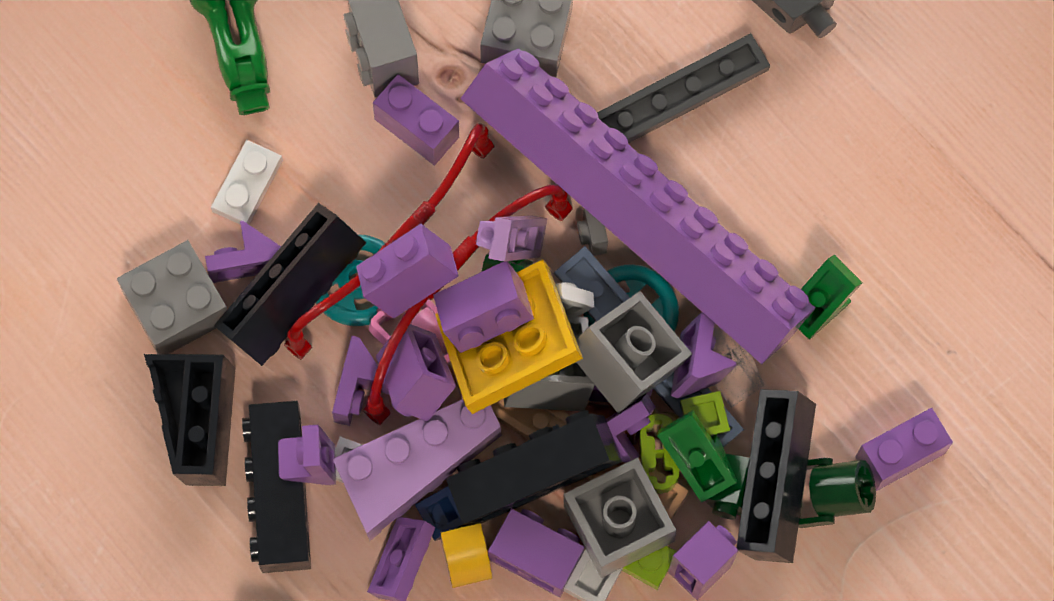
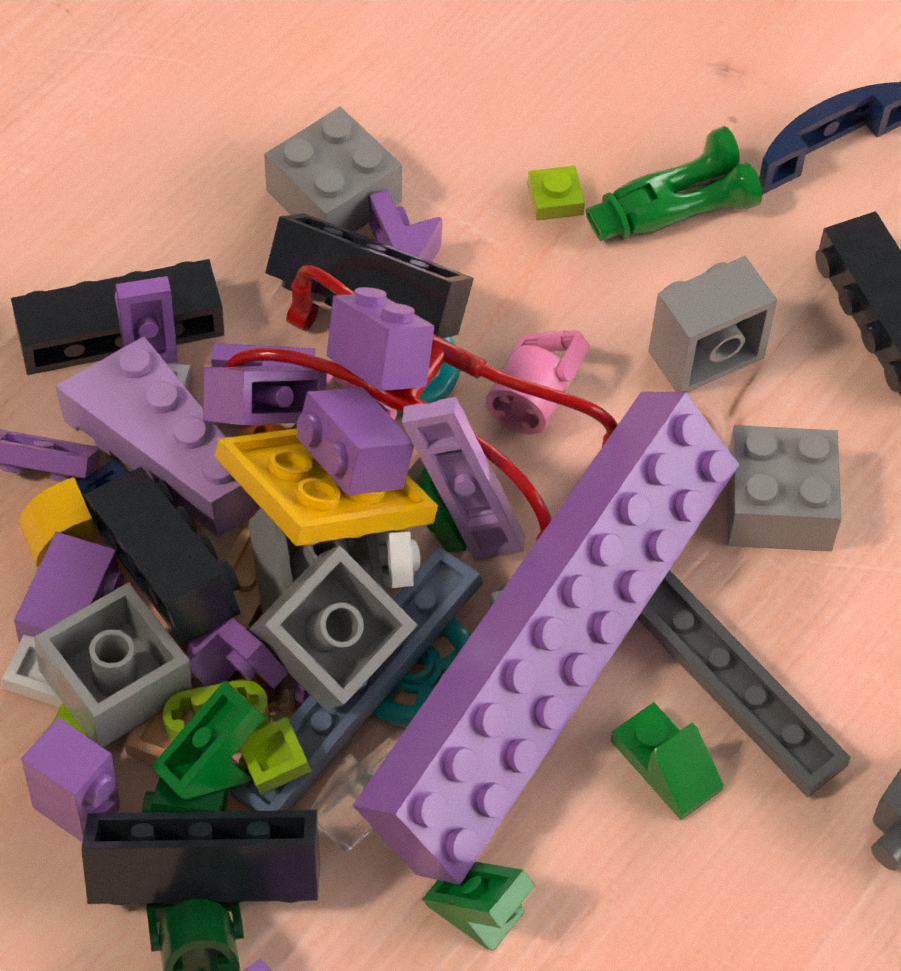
camera: 80 degrees right, 15 degrees down
(195, 413) = (188, 216): black wedge -> none
(212, 134) = (556, 193): none -> lime plate
(247, 183) = (500, 235): white plate -> none
(403, 183) = (535, 362): none -> bright pink piece
(416, 119) = (628, 366): medium lavender brick -> none
(704, 366) = (333, 727): medium lavender slope -> none
(730, 154) = (669, 759): none -> green slope

